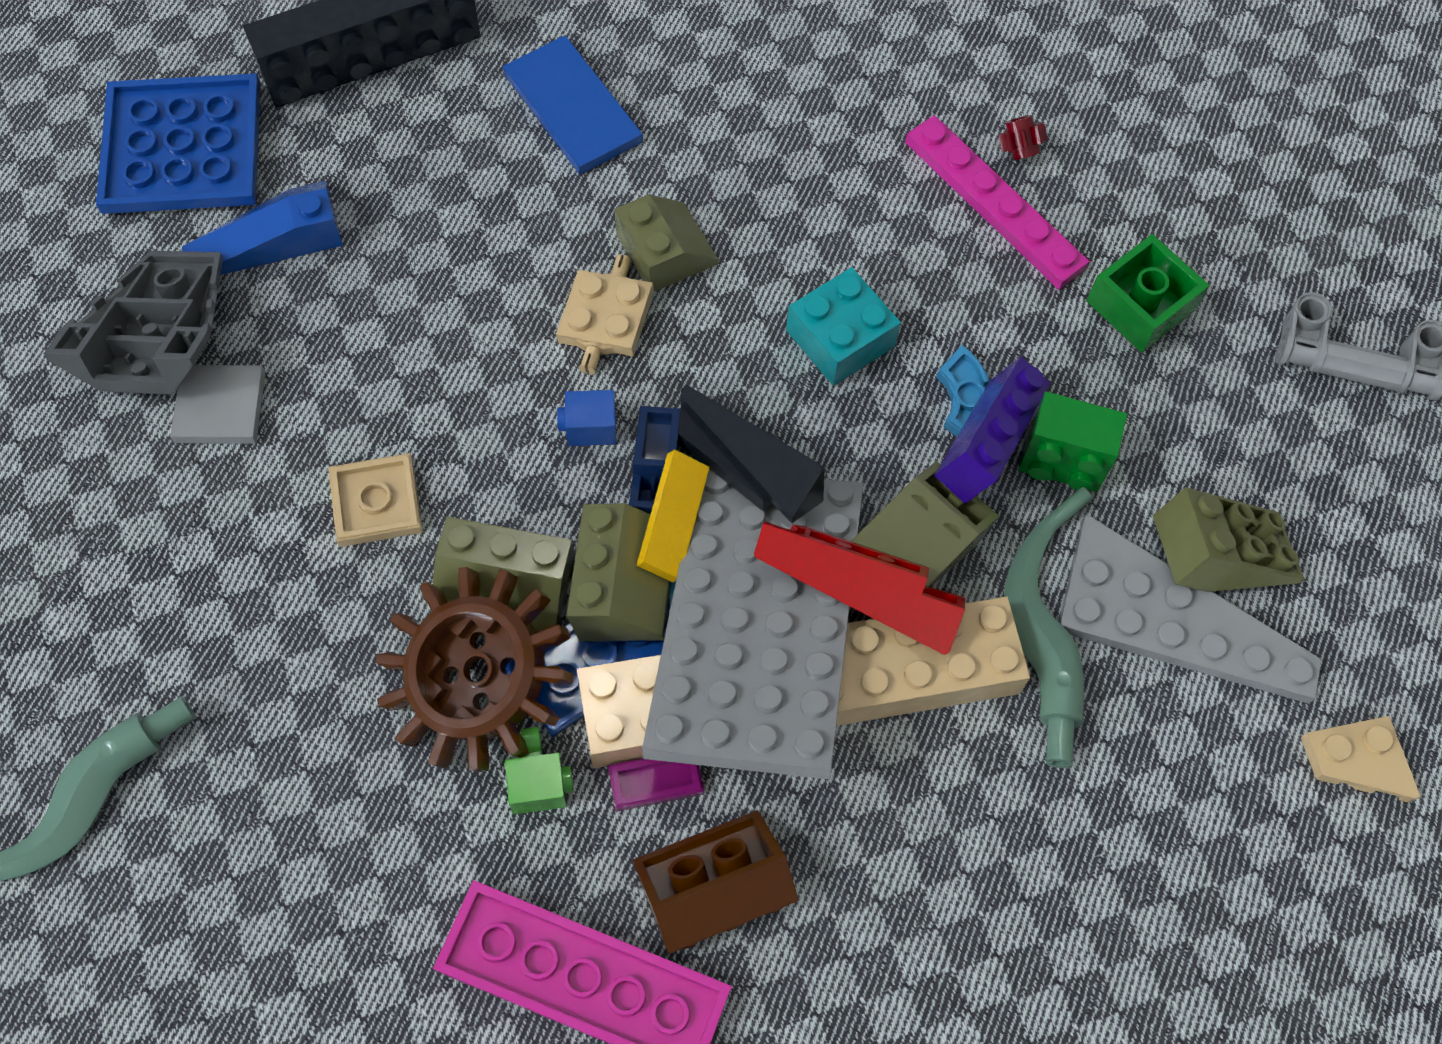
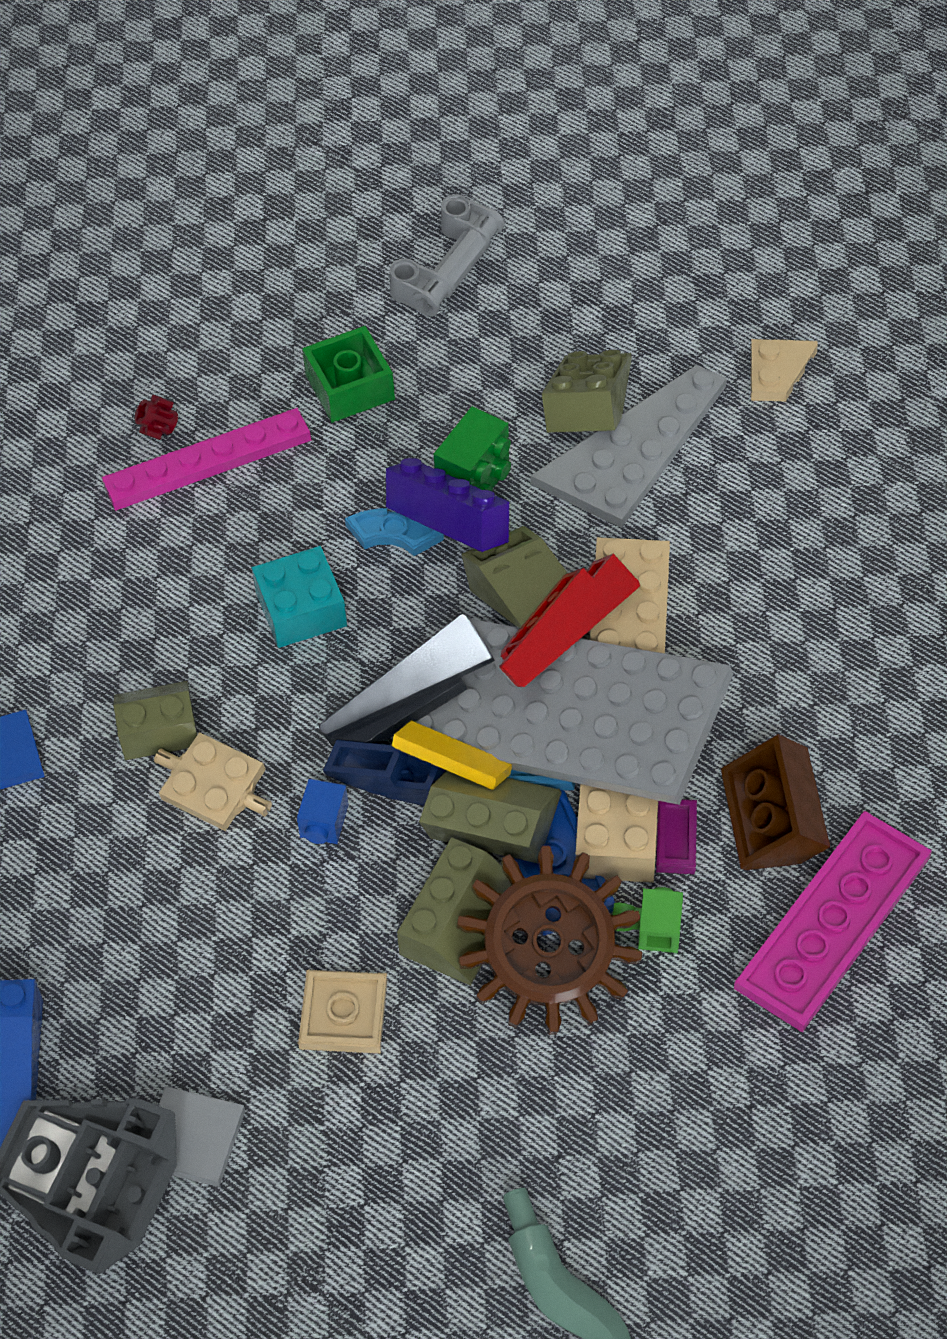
camera: 70 degrees left, 10 degrees down
(1045, 640) = (683, 532): sand green animal -> none

